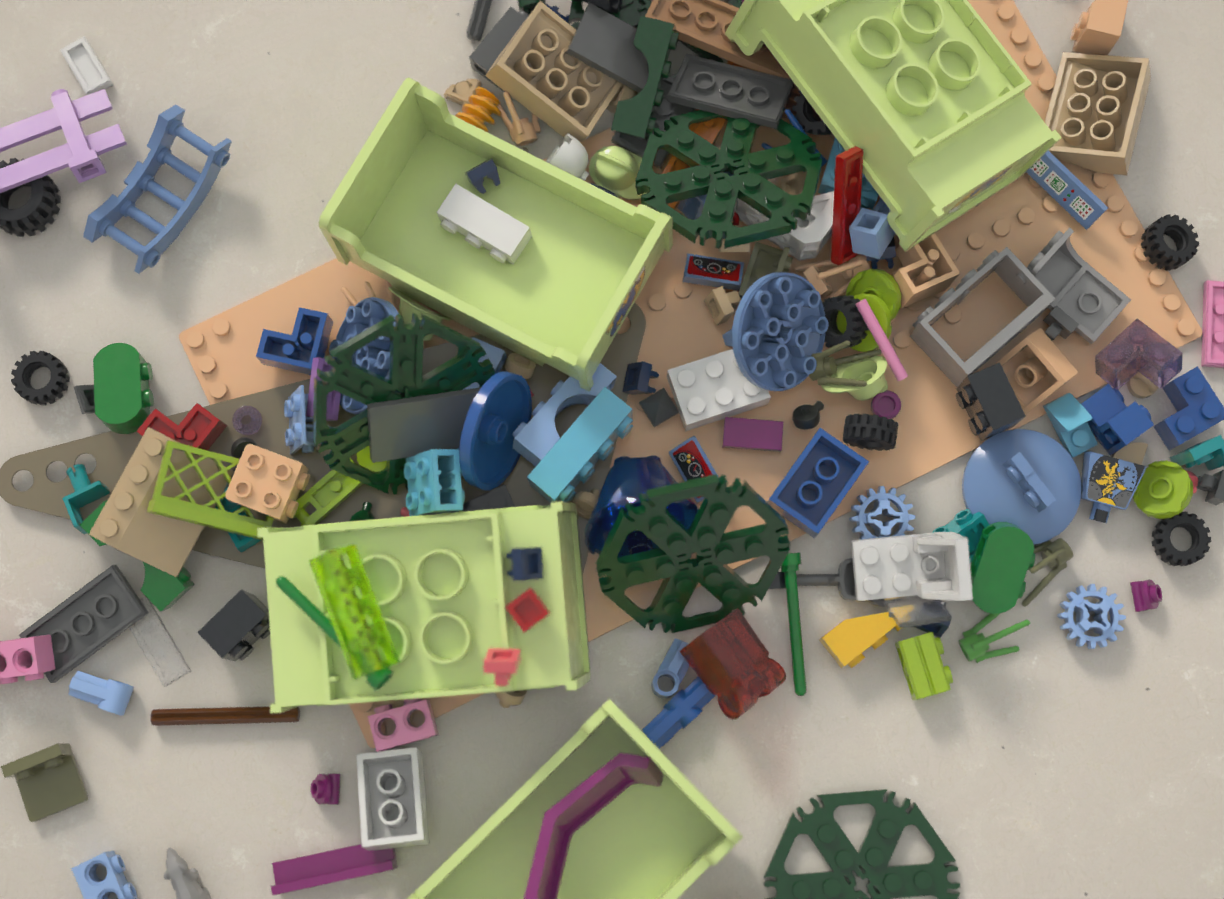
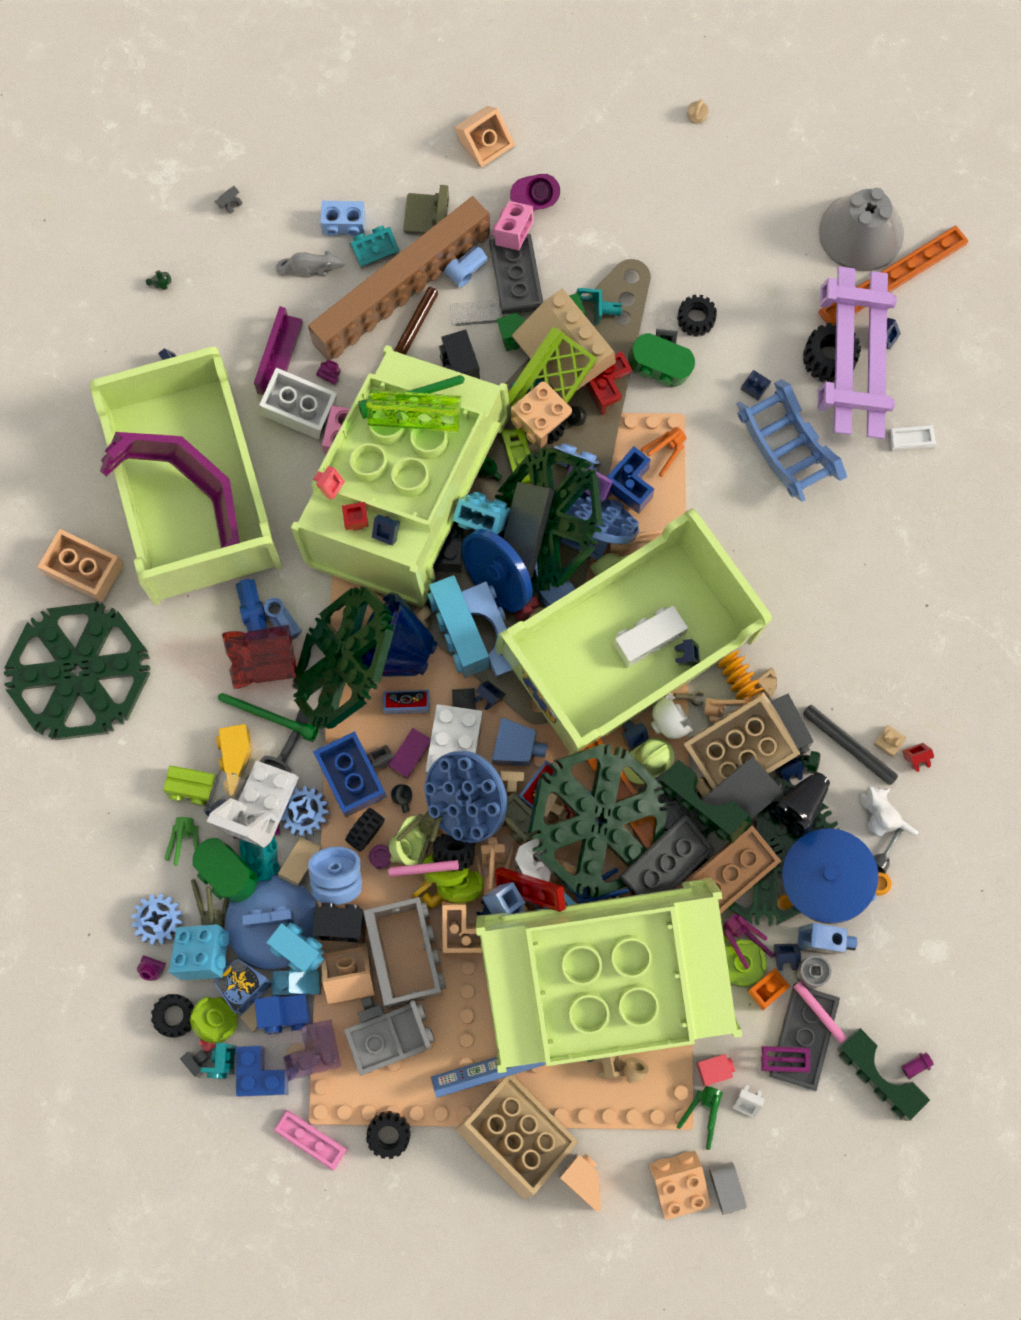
camera: 115 degrees right, 5 degrees down
(100, 269) = (755, 385): none -> dark blue tile
(125, 825) = (374, 246): none -> teal bracket
(158, 760) = (399, 279): none -> medium nougat brick
(222, 324) = (672, 440): none -> orange plant
(253, 426) = (597, 433): plate -> none
(682, 319) = (516, 745): none -> medium blue torso
(775, 464) = (380, 757): none -> dark grey slope
(899, 339) = (431, 901): none -> yellow piece
(940, 492) = (297, 862): none -> tan tile
(941, 433) = (335, 875): none -> light blue wheel
(1047, 429) = (302, 952): none -> medium azure brick
(1104, 542) = (199, 952): none -> medium azure brick

